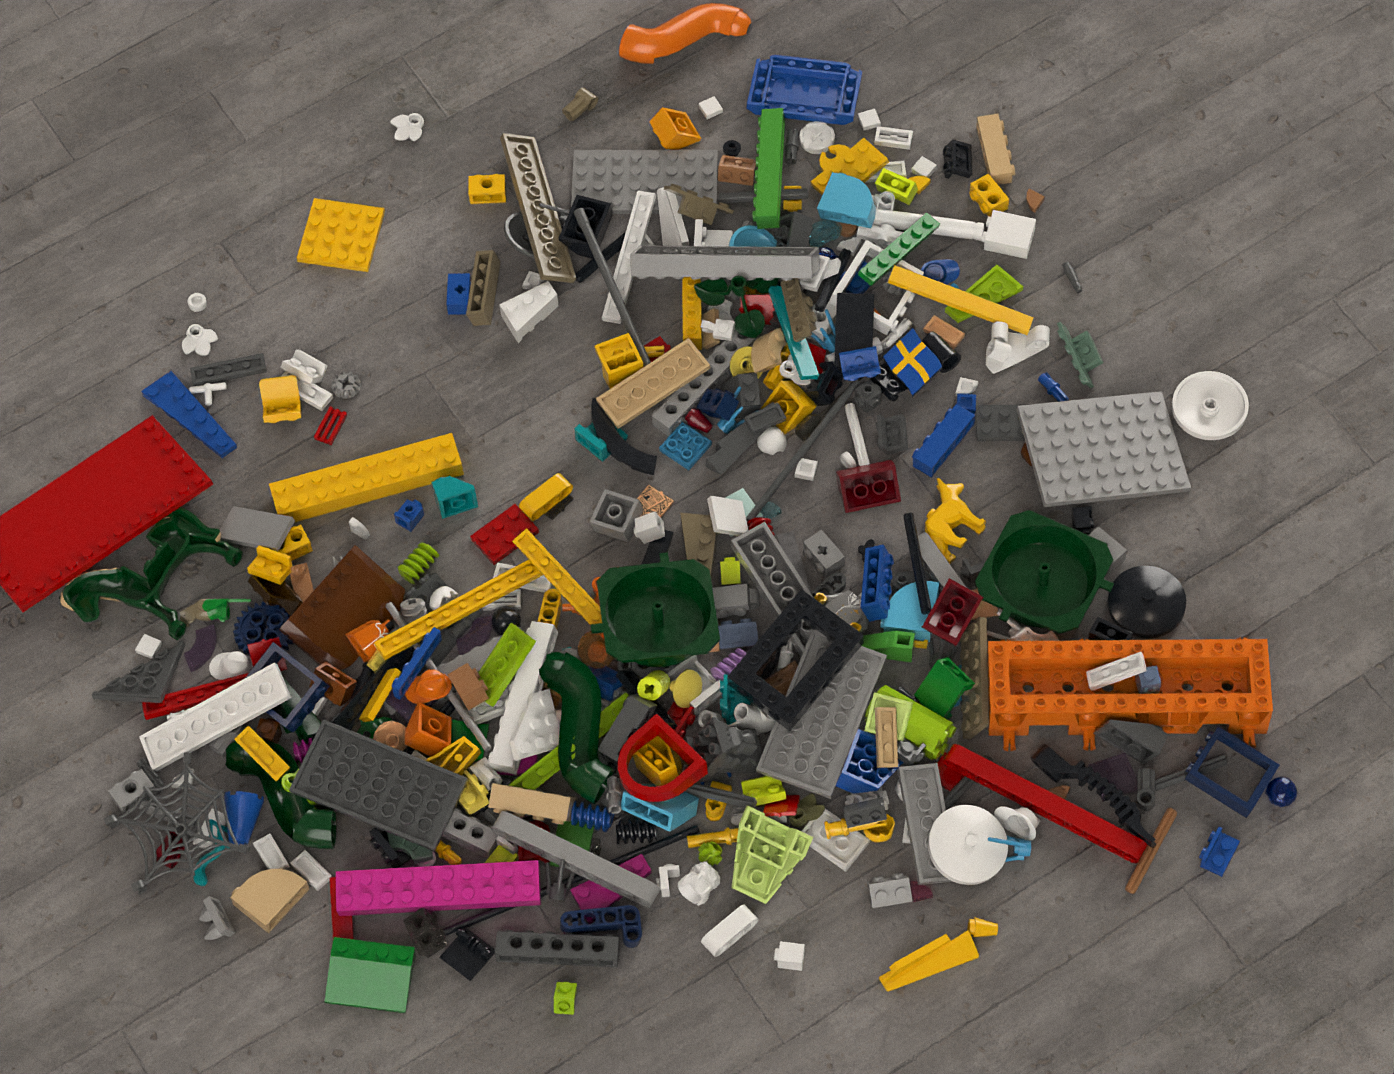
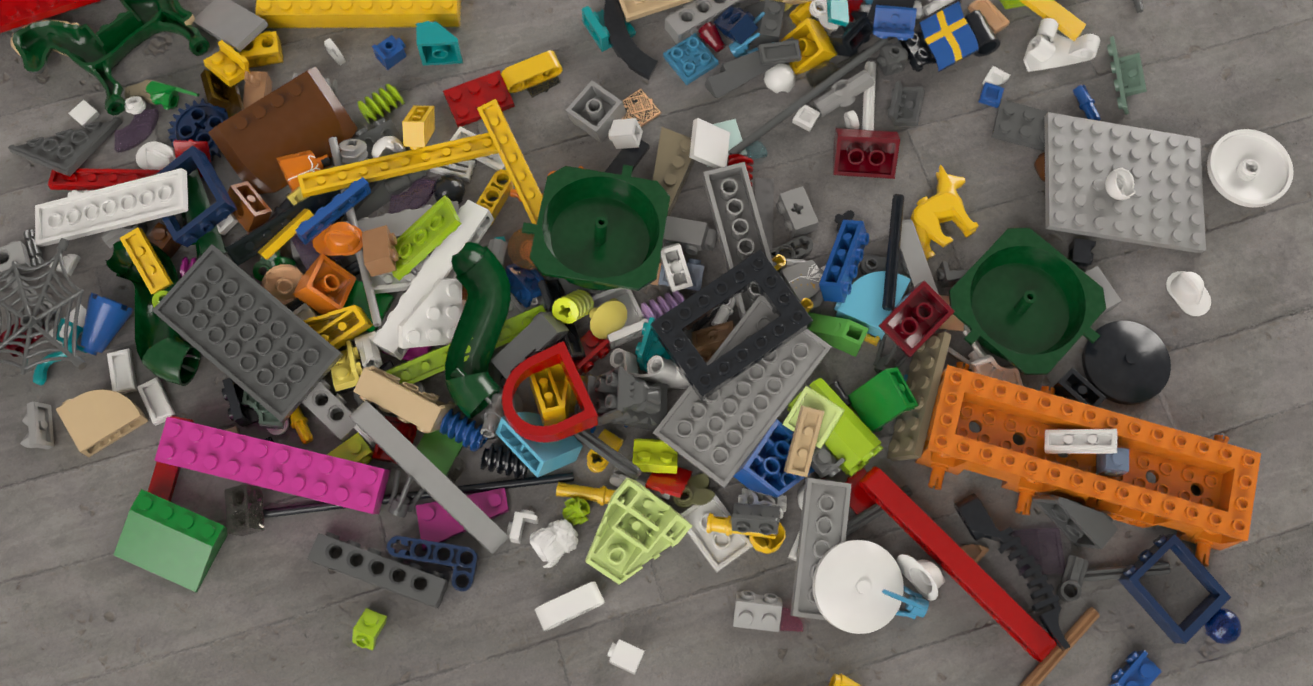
camera: 10 degrees right, 10 degrees up
(195, 625) = (135, 105): none -> white plate
(464, 572) = (418, 126): none -> yellow brick
(467, 953) = (283, 545): black hinge -> none
(730, 571) = (694, 203): neon yellow bracket -> none
(732, 628) = (675, 267): none -> white brick
(833, 438) = (843, 92): none -> light grey piece
(943, 440) = (957, 126): blue brick -> none
(1096, 450) = (1120, 184): none -> white hair
(1186, 528) = (1189, 292): none -> white piece

